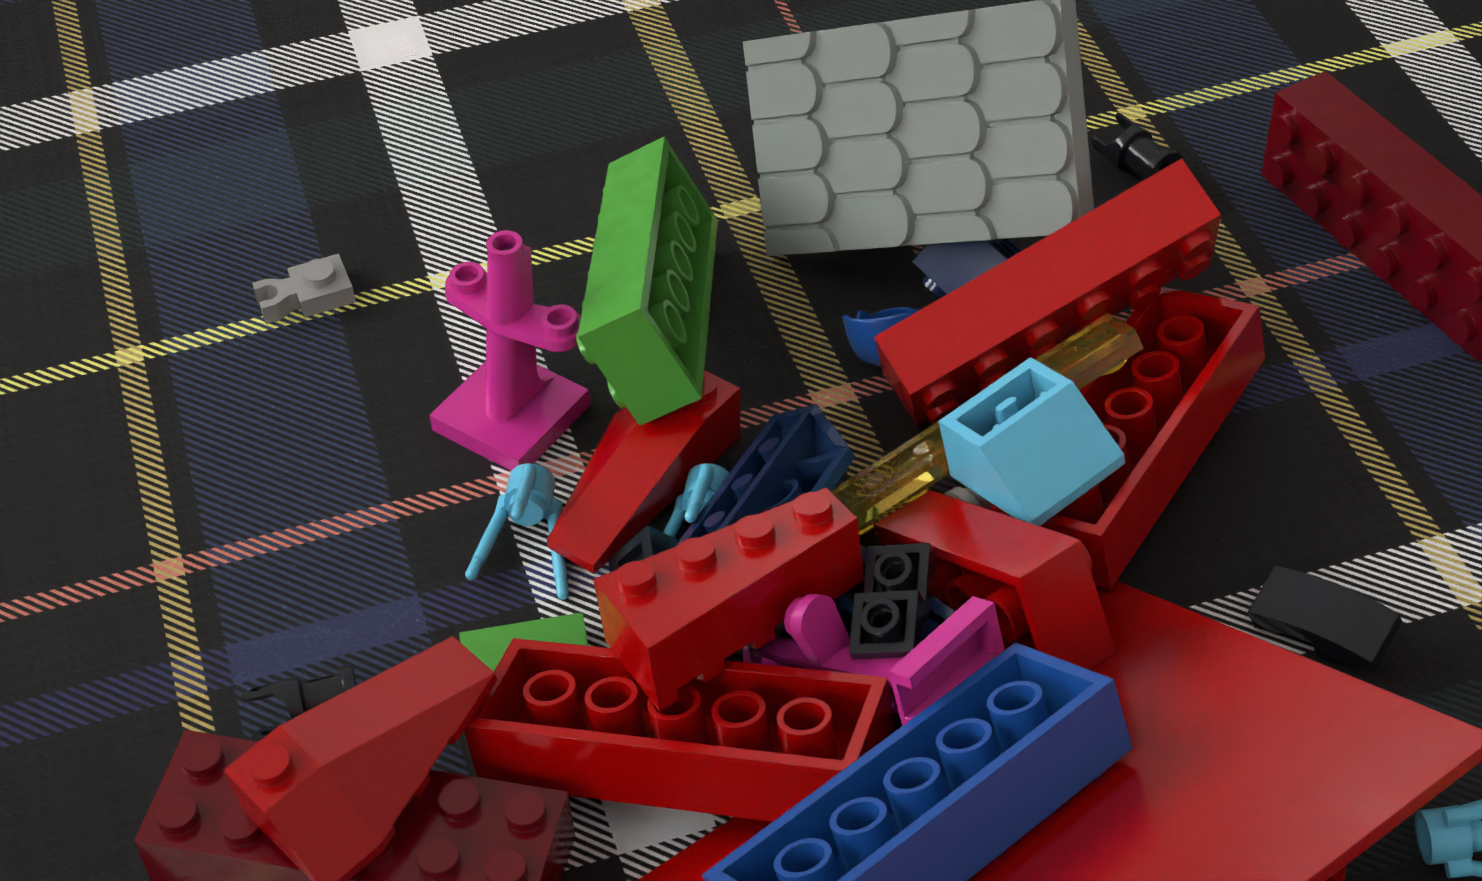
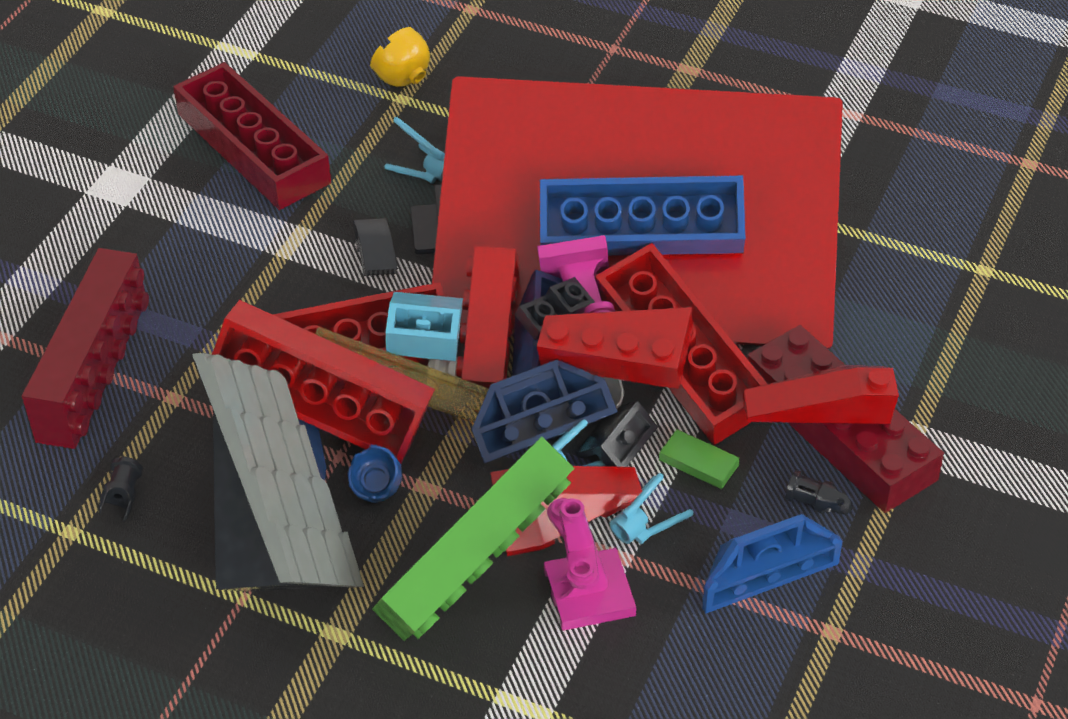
camera: 140 degrees left, 0 degrees up
(299, 563) = (769, 560): none -> blue wedge

